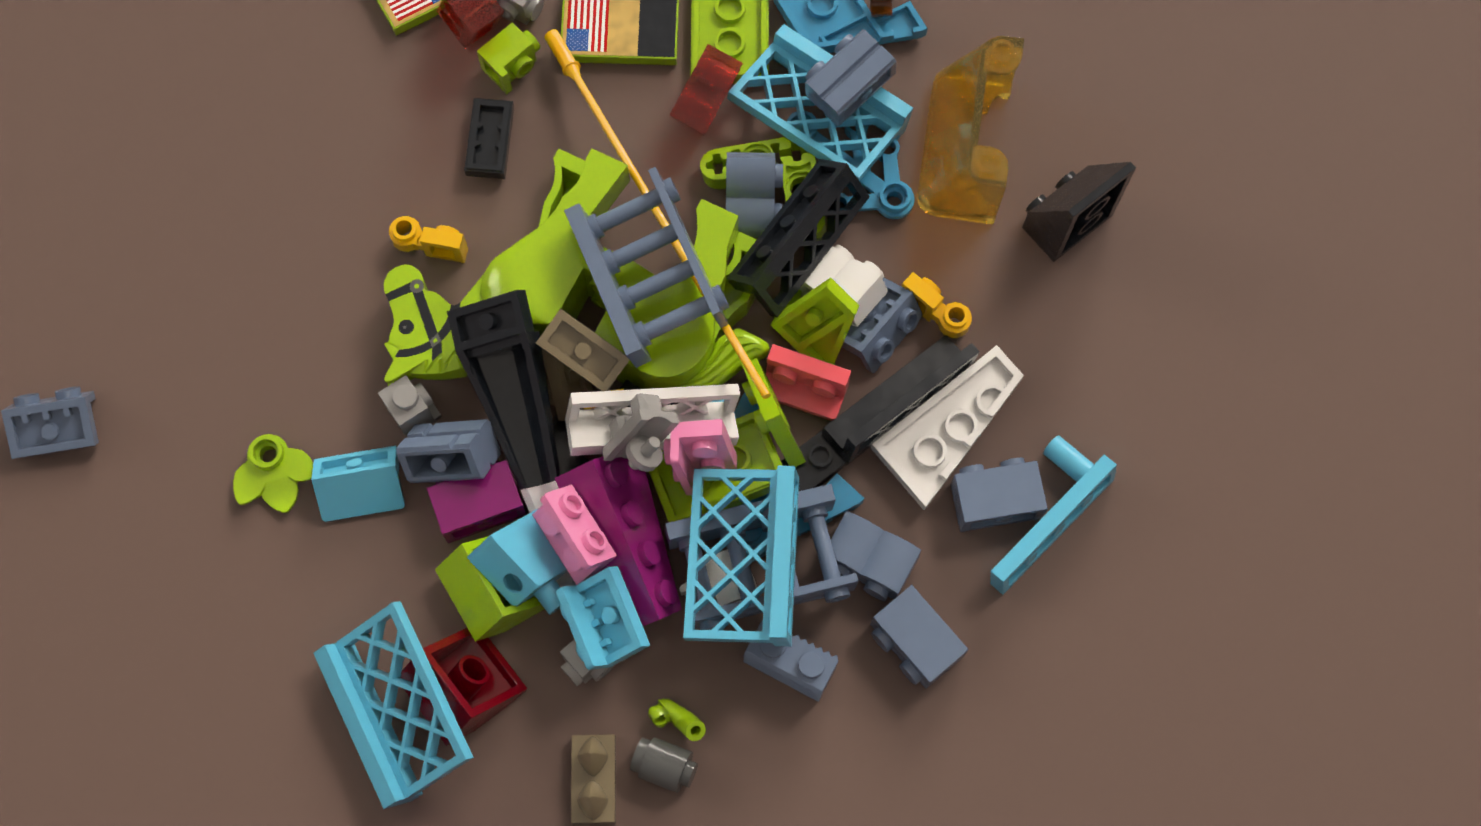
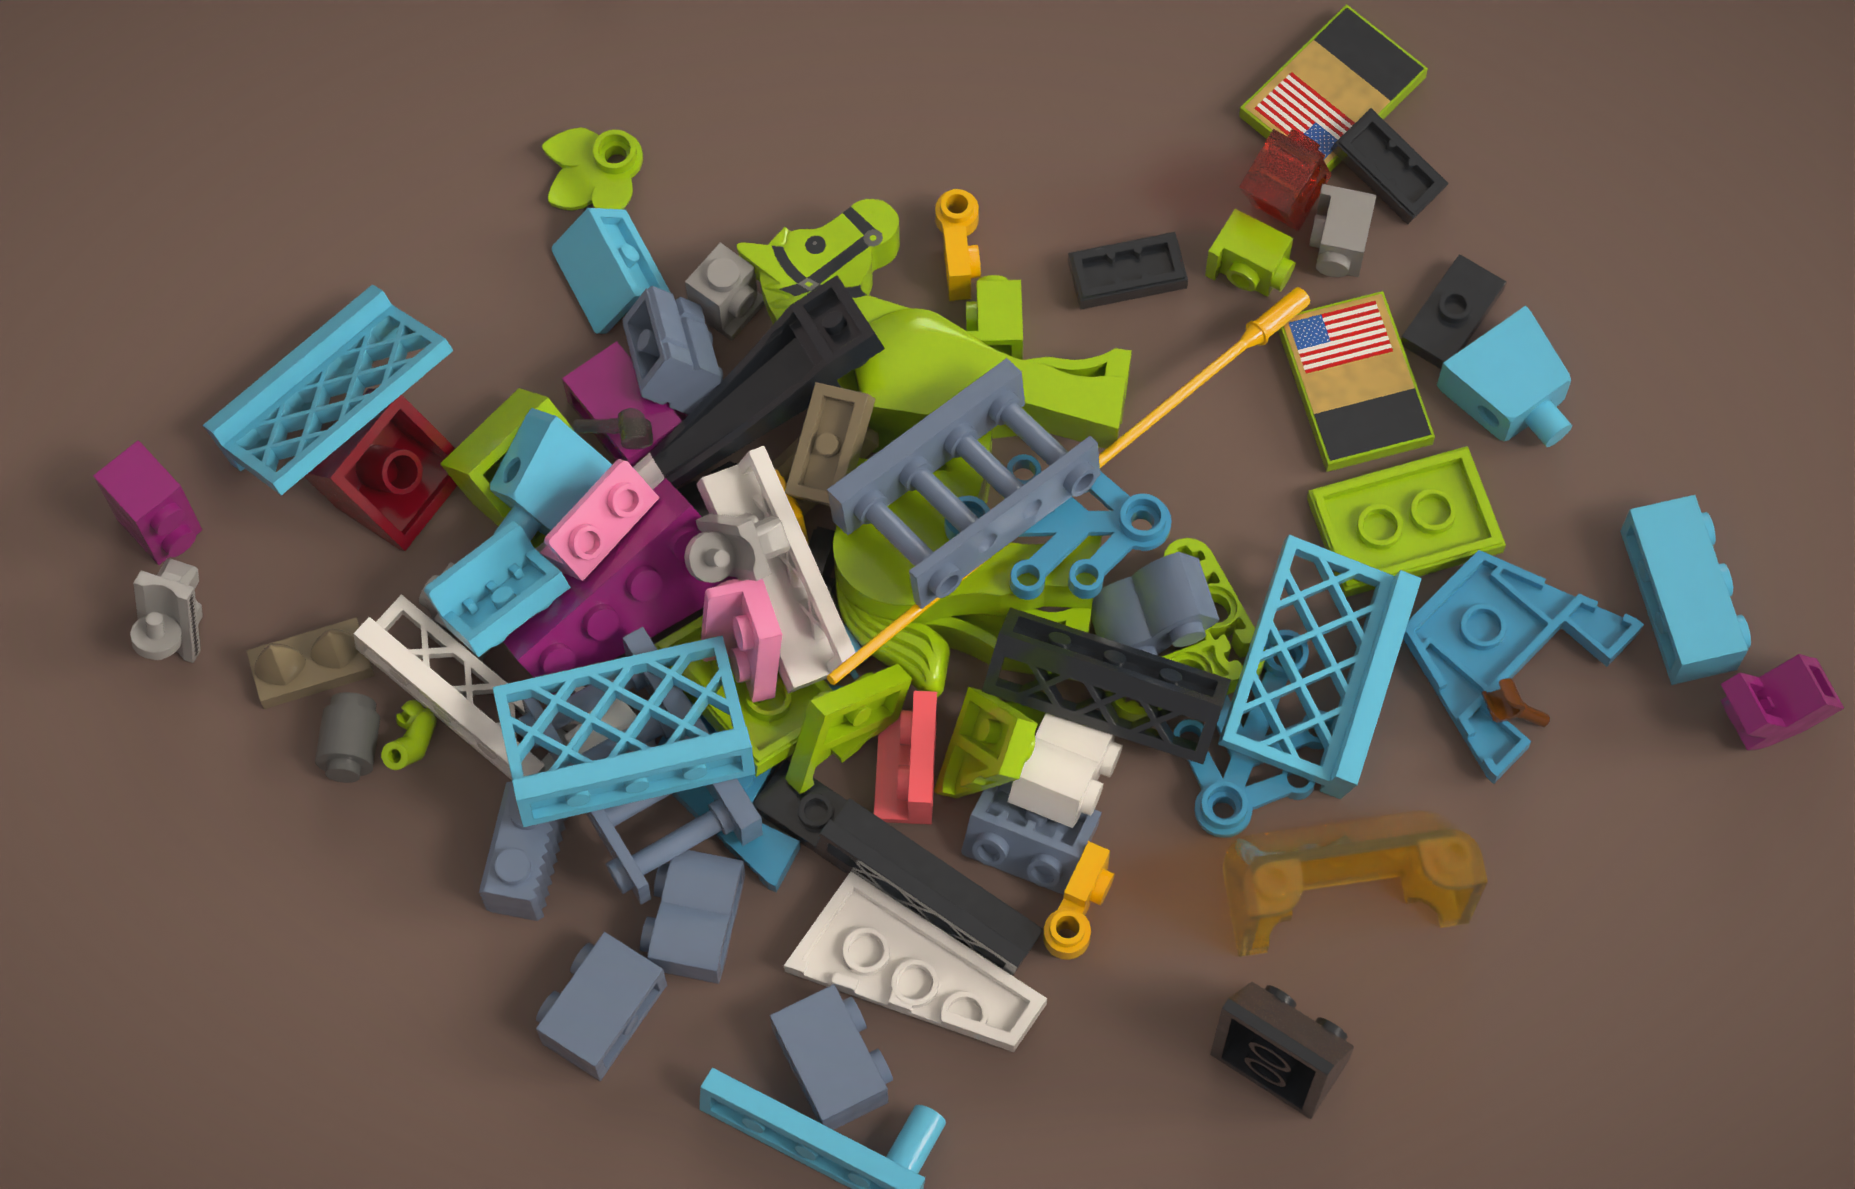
camera: 75 degrees right, 5 degrees down
(495, 229) = (997, 314): none -> lime brick
(501, 492) = (631, 424): none -> clear smoke hand
(658, 687) = (434, 692): none -> white fence
(695, 214) = (1073, 524): none -> dark azure plant
(706, 89) = (1282, 504): clear red brick -> none
(849, 76) = (1360, 677): sand blue brick -> none

